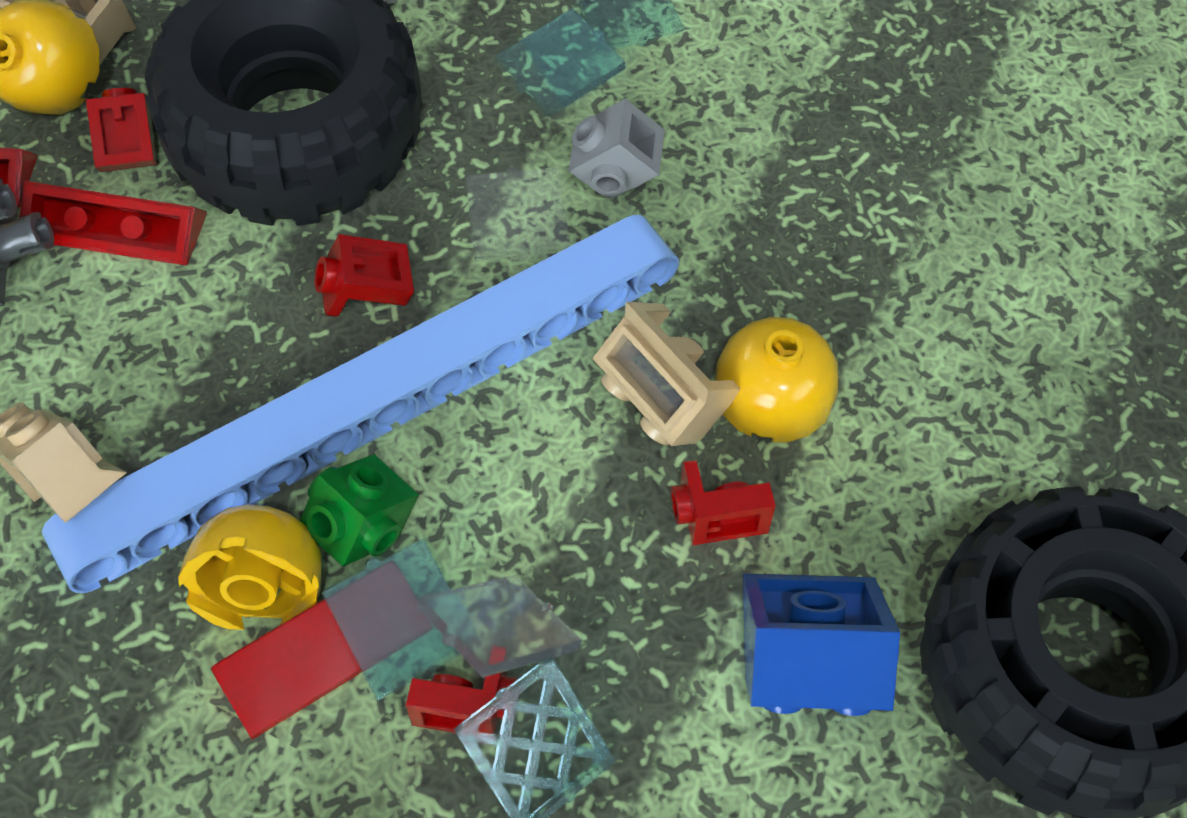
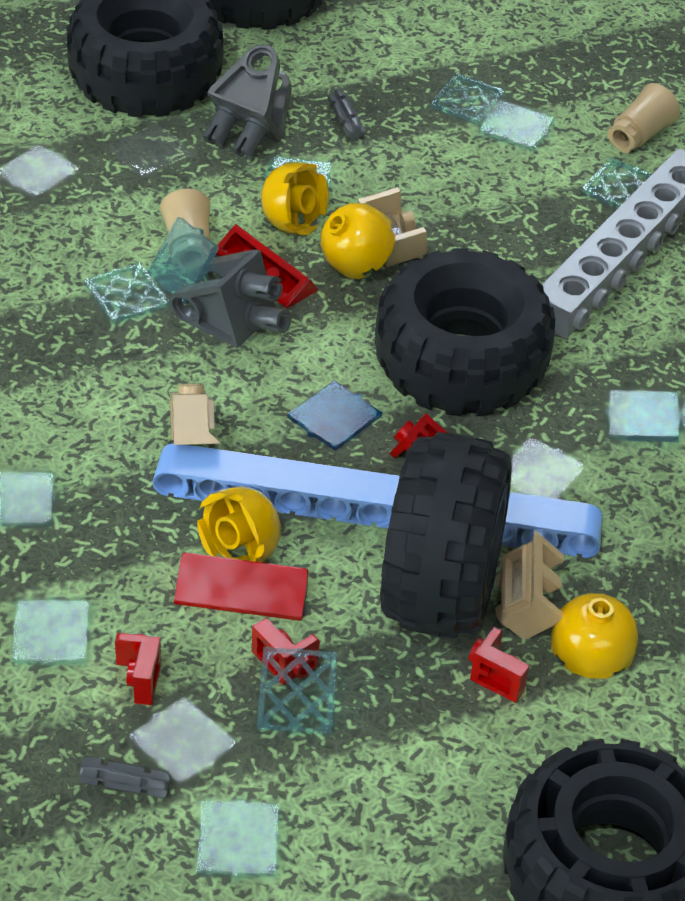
camera: 40 degrees right, 15 degrees down
(116, 222) = (326, 344): red slope -> none
(121, 130) = (363, 301): red bracket -> none
(213, 312) = (334, 415): none -> piece
(358, 509) = (313, 538): green brick -> none
(383, 622) = (289, 595): clear light blue piece -> none
(498, 625) = (330, 629): clear piece -> none
(563, 391) = (445, 535): none -> black tyre
(616, 149) = (619, 471): light grey brick -> none
(819, 643) = (479, 754): blue slope -> none

